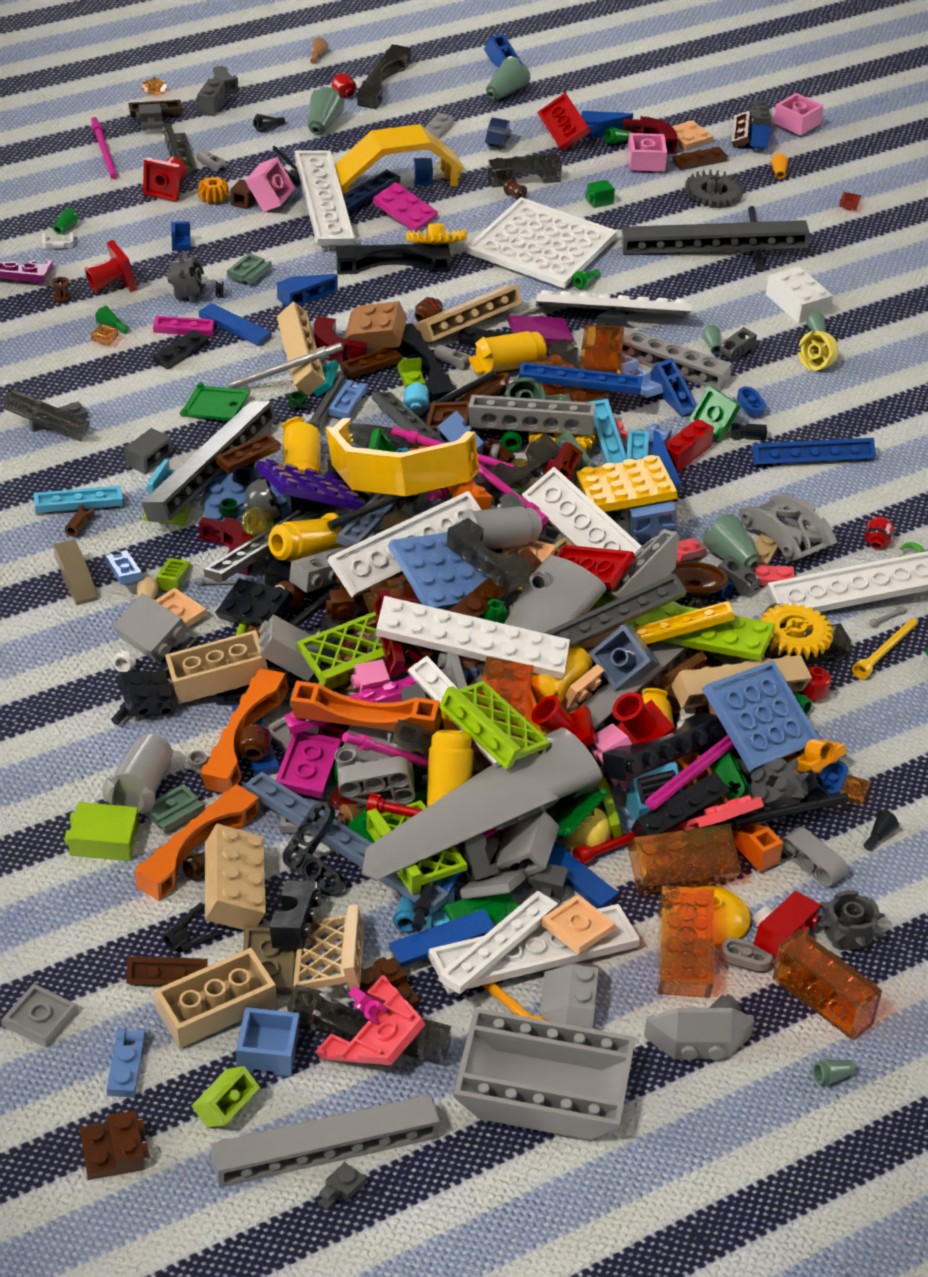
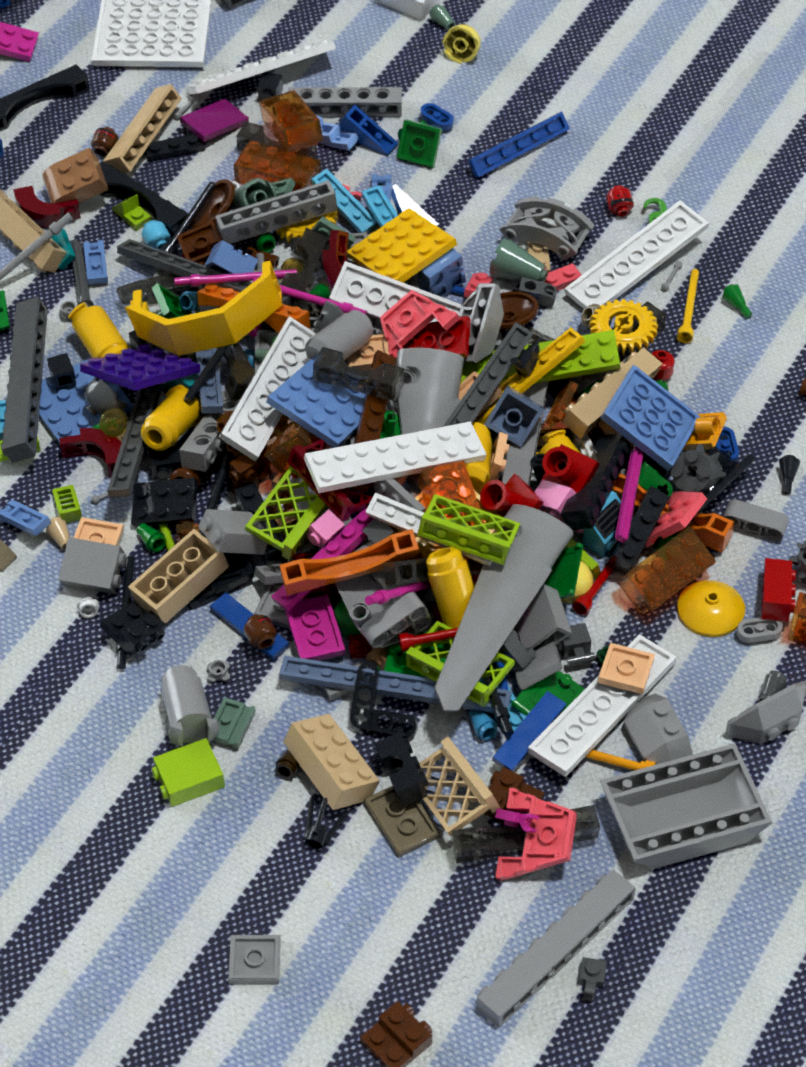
camera: 25 degrees left, 10 degrees up
(126, 1063) = (354, 964): medium blue plate -> none
(160, 871) = (263, 783): orange arch -> none
(161, 969) = (331, 869): reddish brown plate -> none
(214, 997) = (391, 873): tan brick -> none
(223, 628) = (152, 538): none -> green cone
(225, 1097) = (458, 952): lime brick -> none
(228, 507) = (74, 418): dark green plate -> none
(248, 453) = (63, 359): reddish brown plate -> none
(263, 695) = (238, 584): orange arch -> none
(268, 1041) = (455, 888): medium blue piece -> none
(297, 400) = (51, 282): dark green plate -> none
(370, 362) = (89, 215): reddish brown plate -> none
(436, 235) = (60, 60): yellow gear -> none
(452, 357) = (155, 179): light grey bar -> none
(497, 943) = (579, 715): white plate -> none
(507, 352) = (206, 156): yellow piece -> none
(582, 279) = (215, 51): green cone -> none
(582, 378) = (292, 158): blue plate -> none
(583, 879) = (600, 626): blue tile -> none
(585, 535) = (410, 317): none -> coral wing
(666, 613) = (527, 359): none -> black piece
(686, 942) = (715, 642): clear orange brick -> none
(689, 443) = (416, 178): red brick -> none
(712, 337) = (364, 66): sand green cone -> none
(738, 344) = (390, 65): dark grey leg -> none
(749, 431) = (454, 146): black bar -> none
(762, 914) = (752, 590): white plate -> none
(856, 788) = (748, 445): clear orange plate -> none

